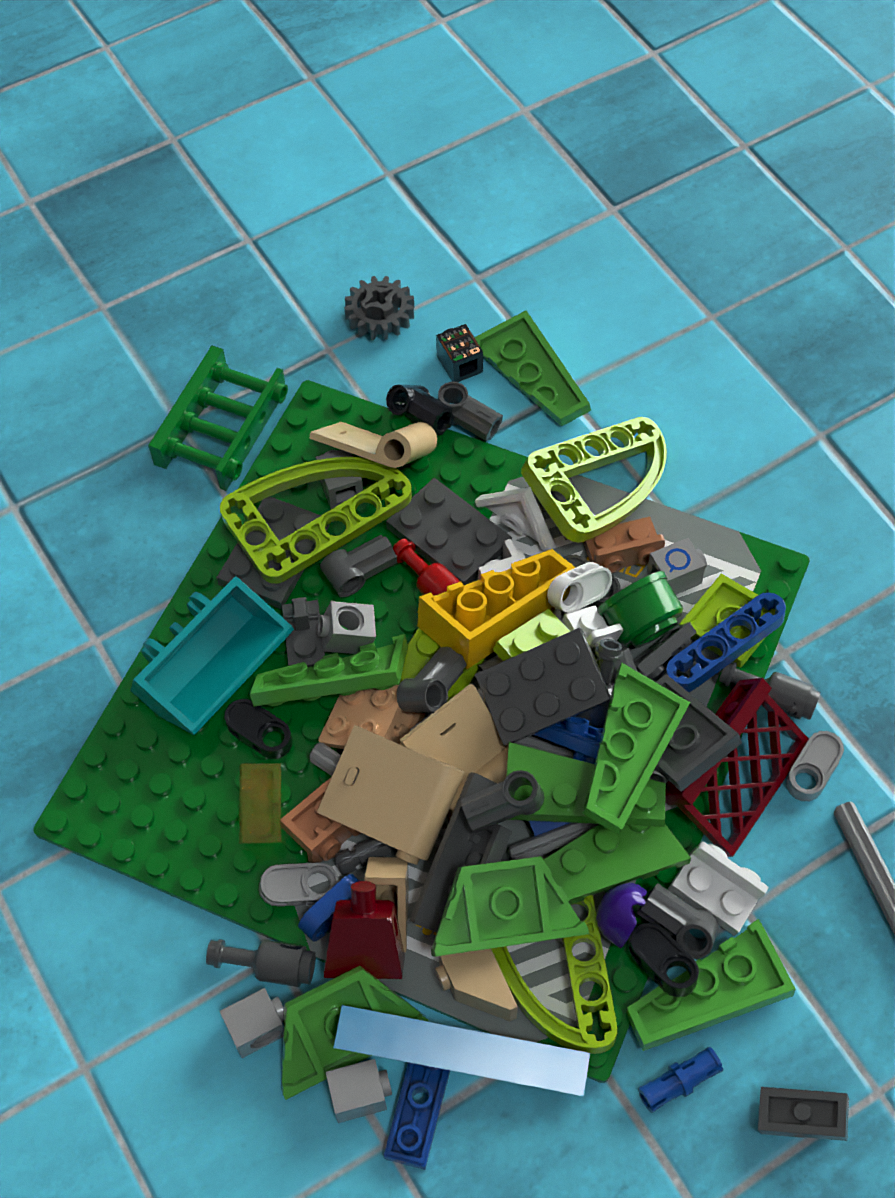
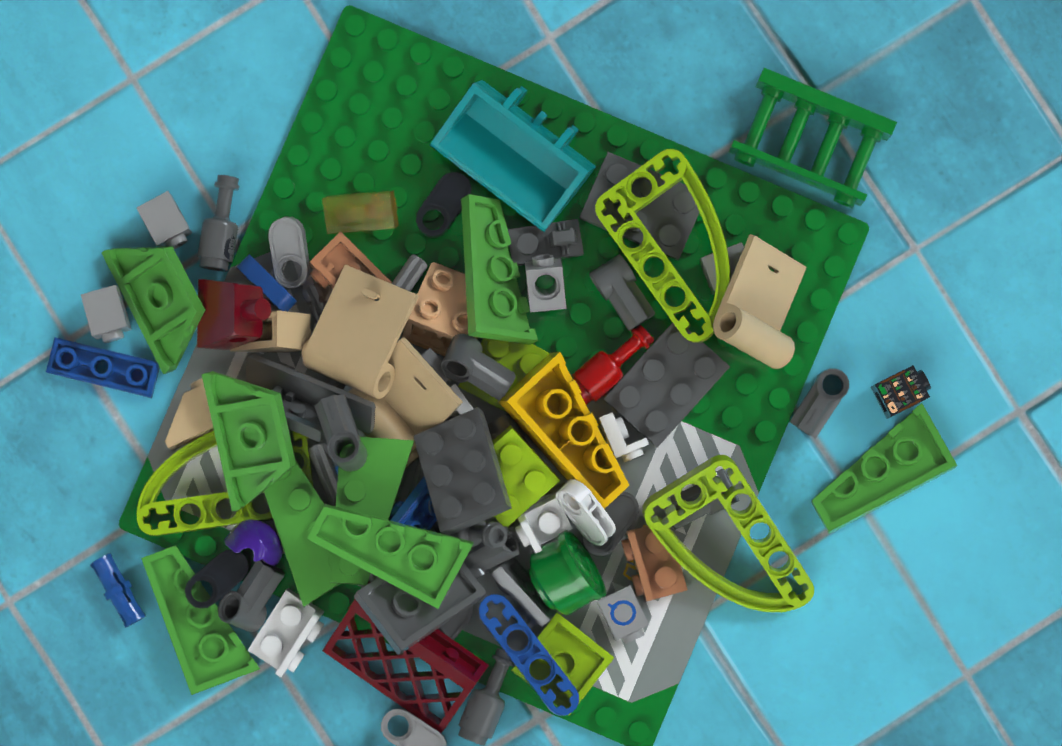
camera: 85 degrees right, 25 degrees up
(379, 307) = (953, 290): dark grey gear -> none
(419, 406) = (829, 344): black piece -> none
(462, 1050) = (135, 400): tile -> none
(519, 512) = (687, 452): white tile -> none
(803, 1113) = (84, 692): dark grey hinge -> none

